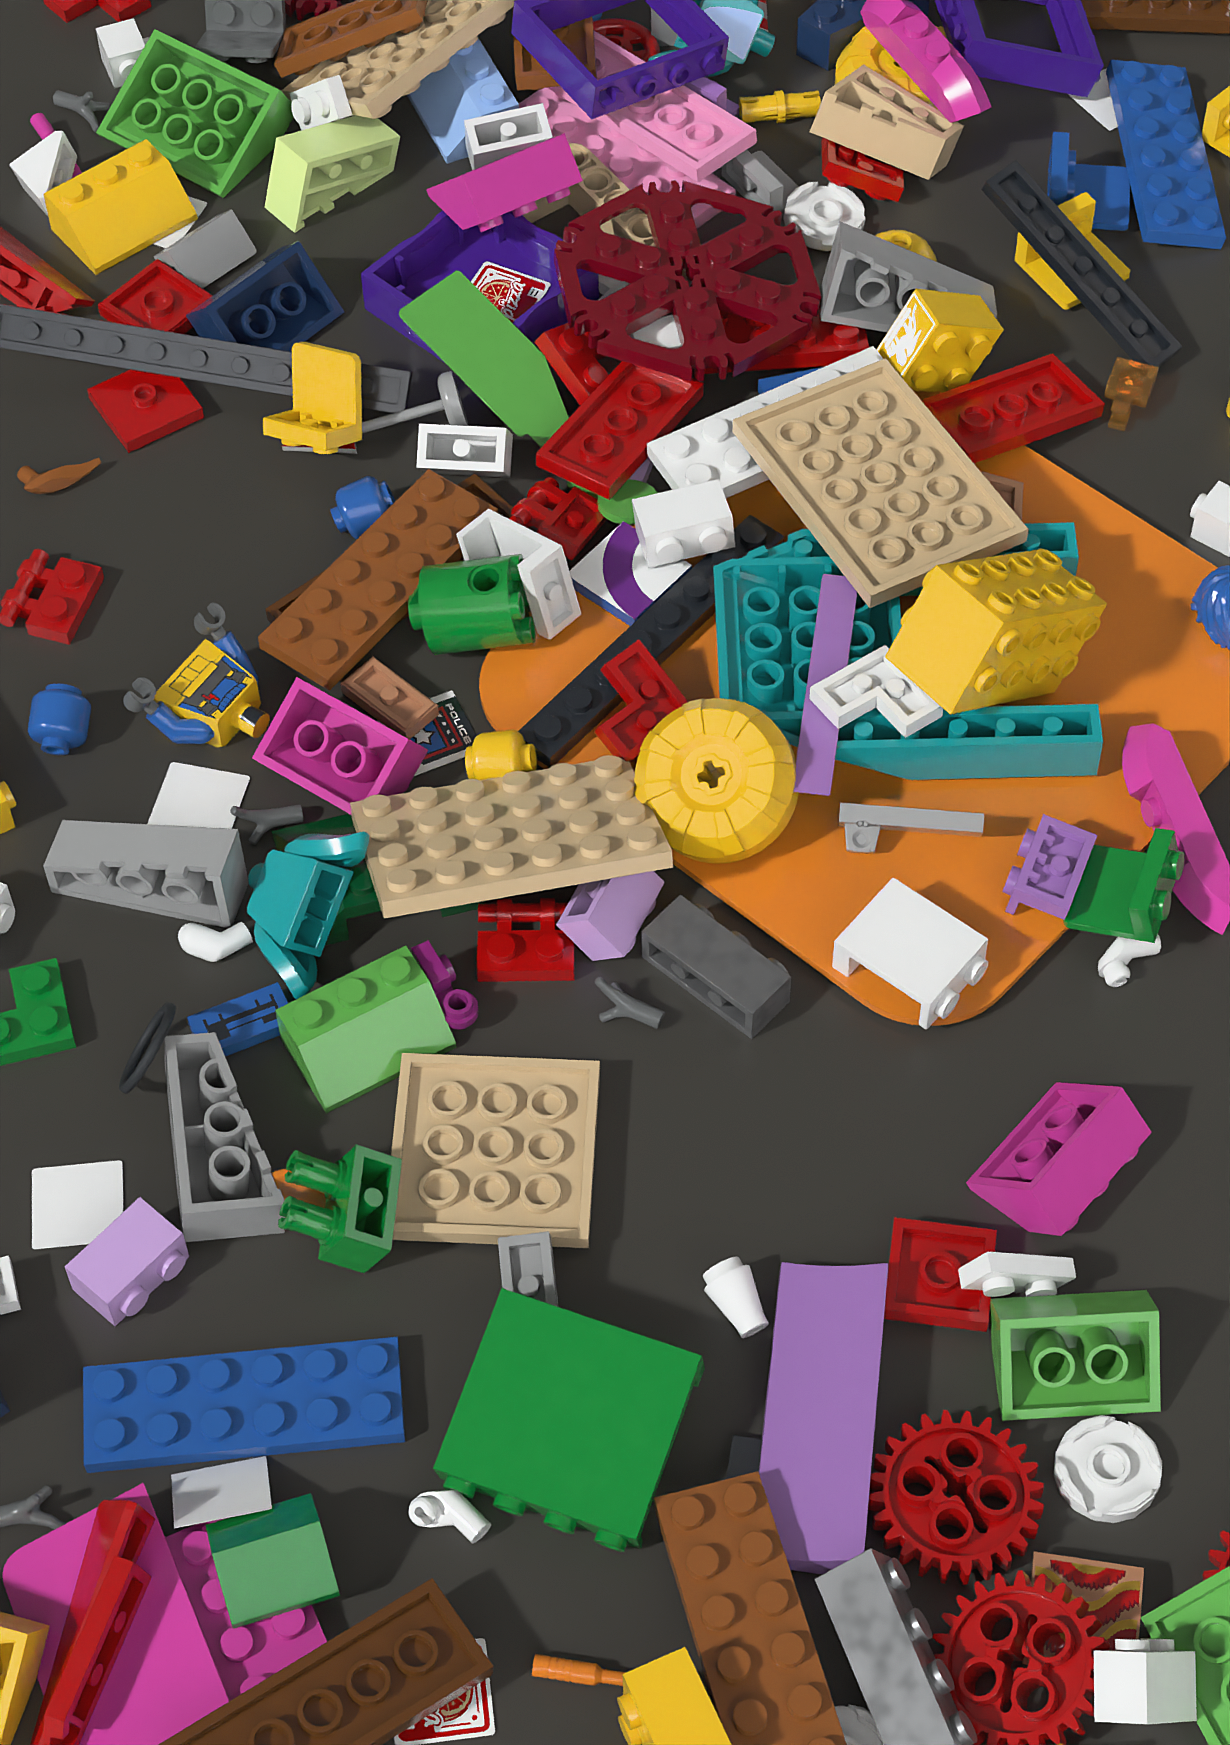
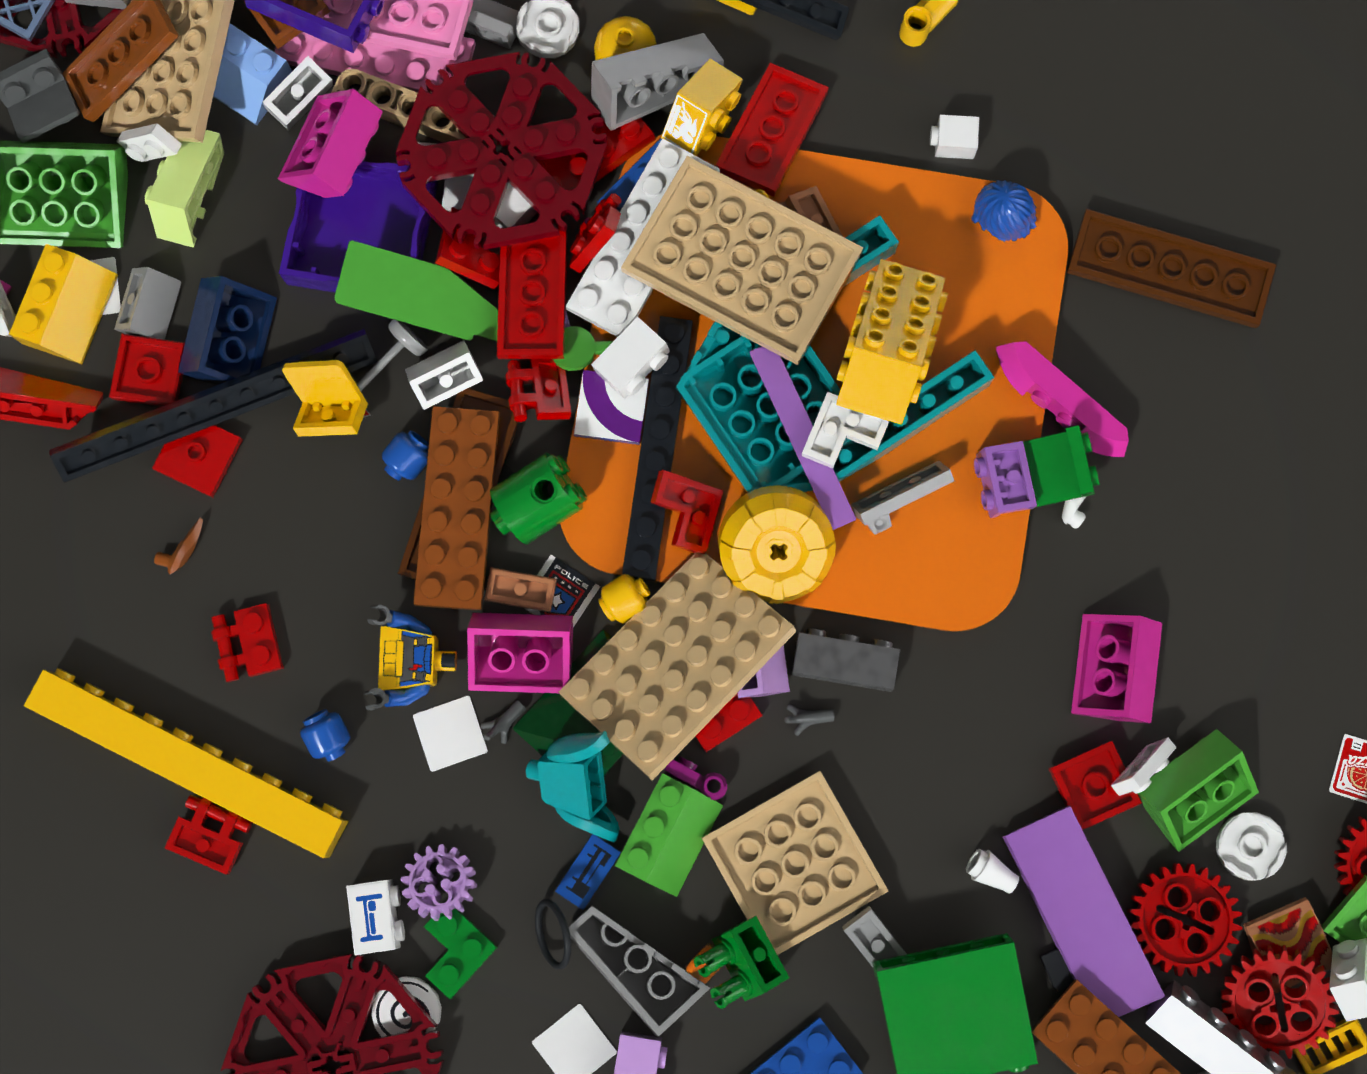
camera: 30 degrees left, 25 degrees up
(48, 922) = (429, 900): none -> lavender gear
(151, 868) = (459, 810): light grey wedge -> none
(211, 944) = (532, 832): white arm -> none
(508, 289) = (376, 221): sticker -> none
(542, 570) = (579, 460): white panel -> none
(738, 387) = (595, 232): none -> red plate
(913, 949) = (959, 587): white panel -> none
(1129, 386) = (832, 60): clear orange plate -> none

